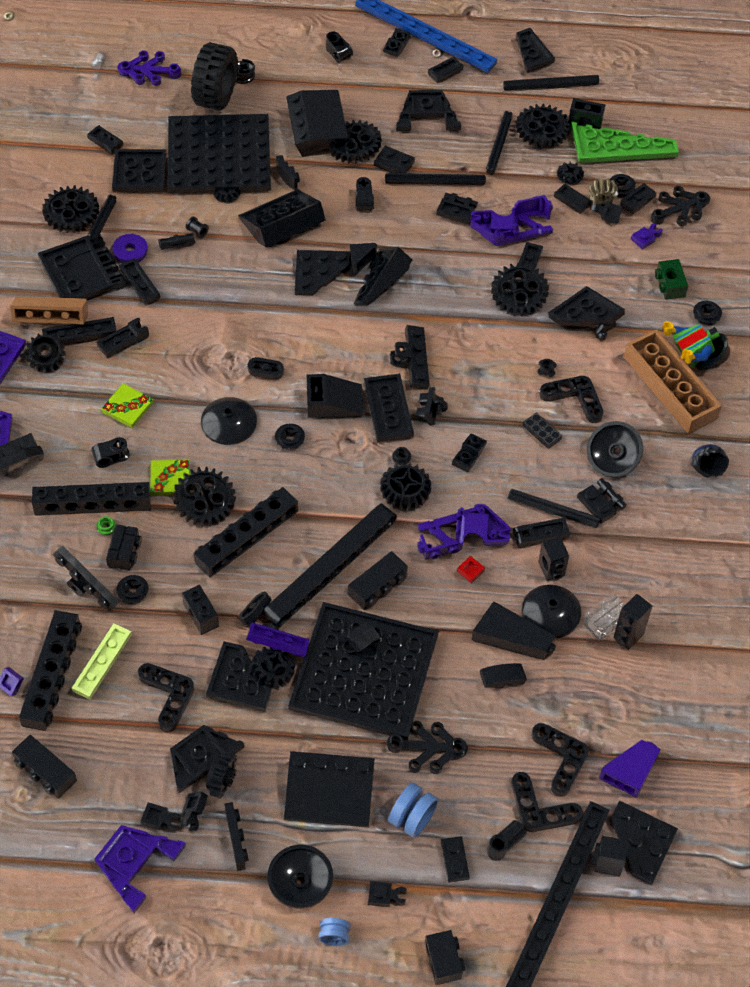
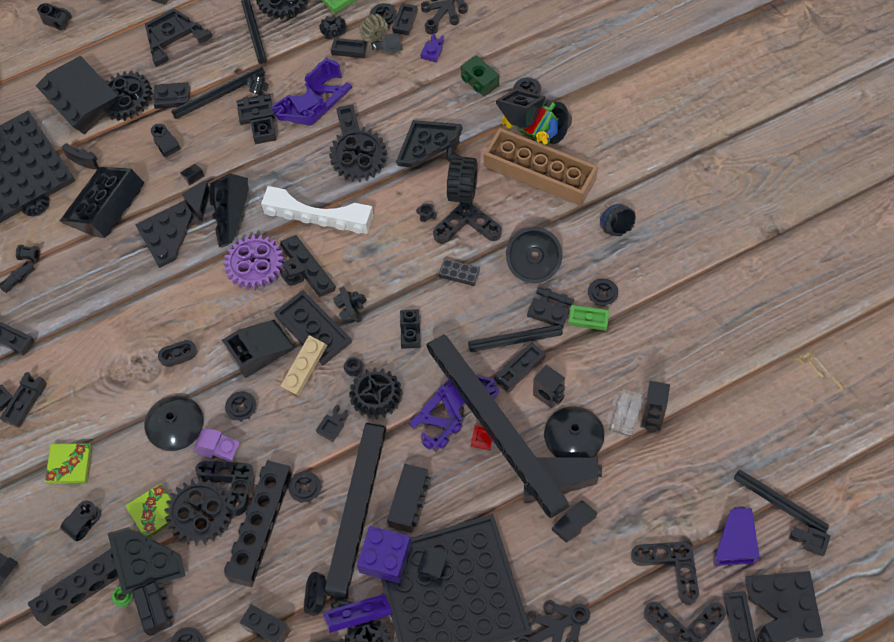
camera: 25 degrees left, 5 degrees up
(138, 505) = (142, 560): none -> black plate
(248, 451) = (213, 443): none -> medium lavender brick
(254, 487) = (236, 481): none -> black beam
(305, 520) = (304, 478): none -> black gear
(328, 608) = (384, 554): none -> dark purple brick
(353, 492) = (332, 426): none -> black plate
(361, 432) = (303, 365): none -> tan plate
(370, 234) = (192, 174): none -> black slope
(374, 330) = (254, 262): none -> medium lavender gear
(452, 229) = (263, 130): none -> black piece
(471, 188) = (257, 84): none -> black gear
(479, 337) = (352, 217): none -> white arch
(486, 563) = (498, 426): none -> black beam
(593, 354) = (462, 179): none -> black tyre
(629, 526) = (588, 317): none -> bright green plate
(662, 509) = (604, 285): none -> black gear
(685, 321) = (521, 107): none -> black slope
(693, 763) = (780, 501): none -> black axle
(697, 807) = (813, 540): none -> black plate

